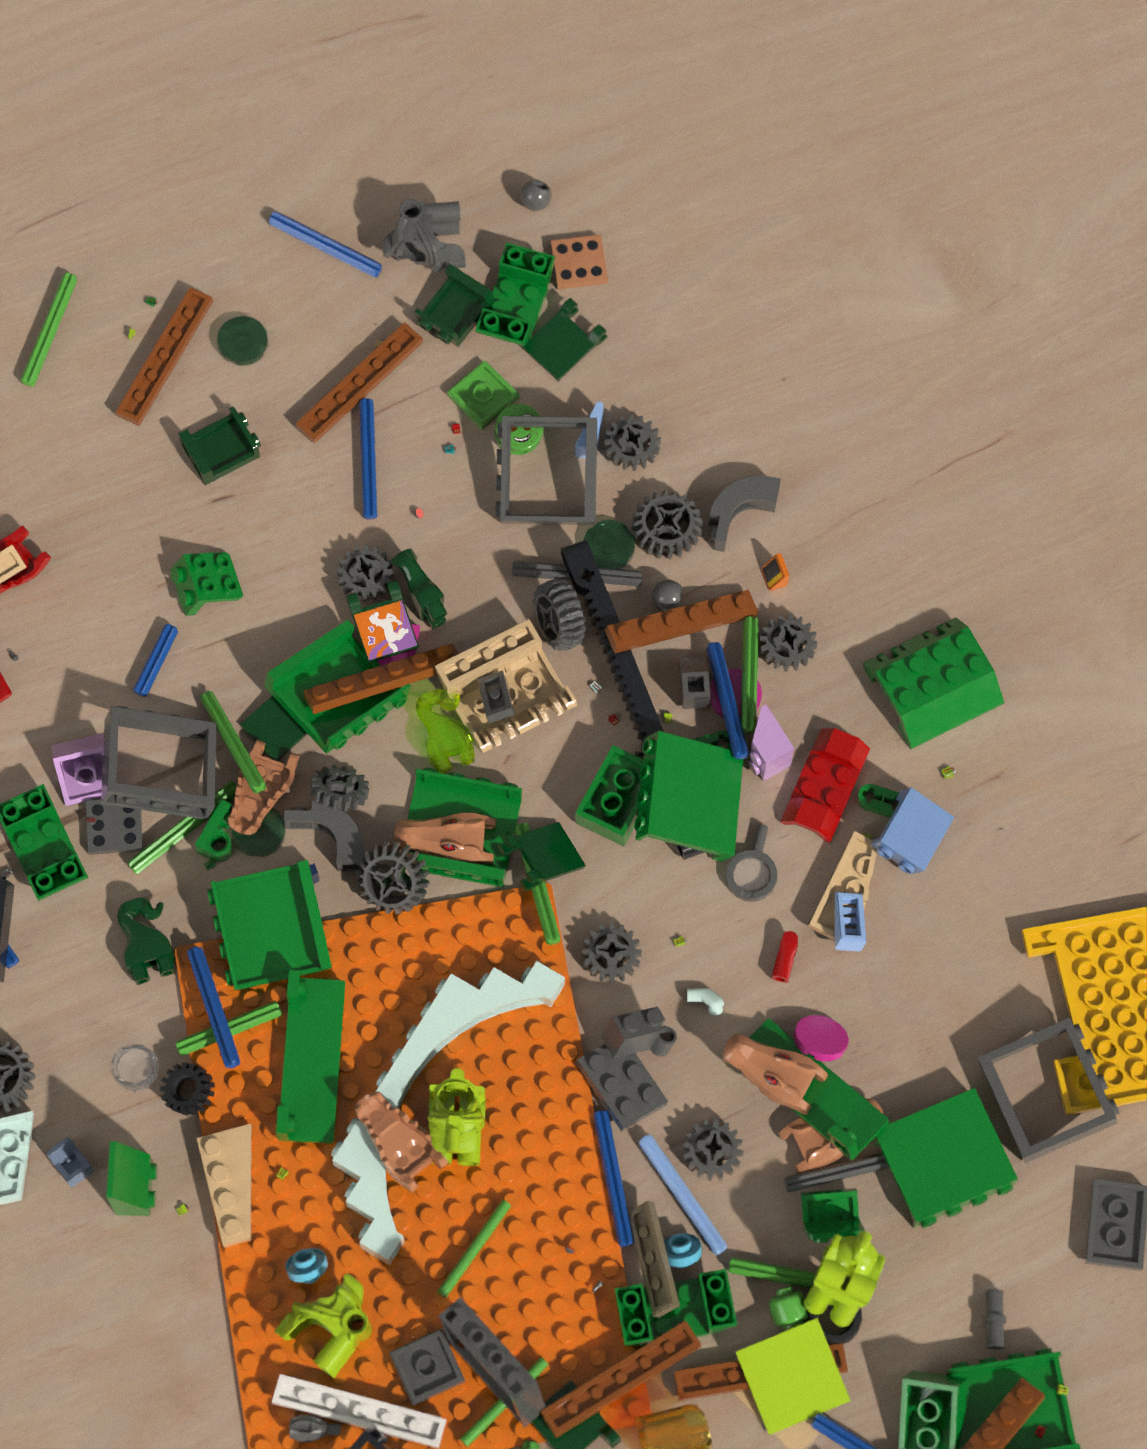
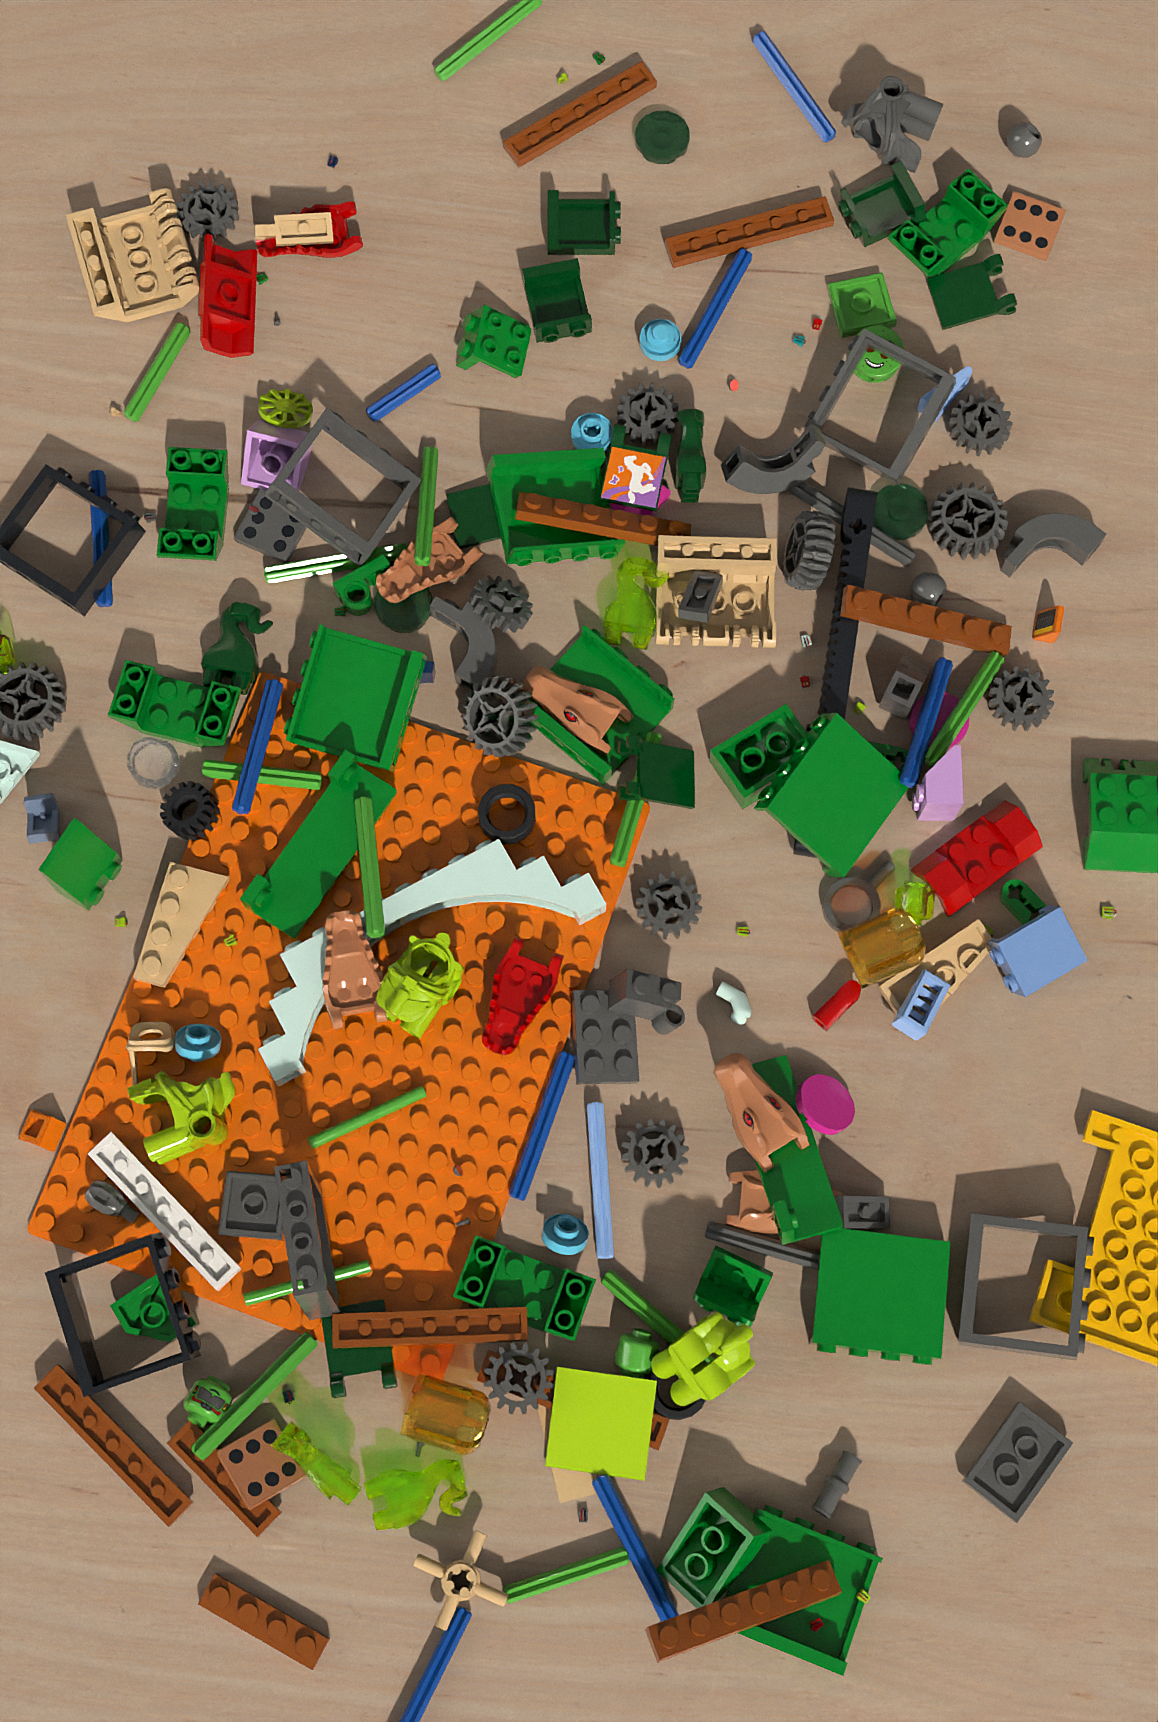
camera: 30 degrees right, 5 degrees up
(67, 724) = (285, 408): none -> lime wheel
(125, 1013) = (173, 707): none -> green slope
(219, 1408) = (42, 1130): none -> orange slope
(237, 520) = (556, 301): none -> dark green panel
(260, 1293) = (164, 1043): none -> tan piece
(329, 611) = (591, 431): none -> medium azure plate
(339, 507) = (660, 340): none -> medium azure plate
(362, 1052) = (369, 867): none -> bright green axle
(440, 931) = (506, 791): none -> black tyre
(496, 565) = (775, 472): none -> dark grey arch
(538, 1086) = (518, 995): none -> red animal
(653, 1259) = (531, 1228): dark tan tile -> none
(700, 1370) = (531, 1369): none -> dark grey gear
(795, 892) = (883, 946): none -> clear yellow cylinder
(798, 846) = (916, 900): none -> clear neon green head
(898, 1102) = (864, 1211): none -> dark grey plate

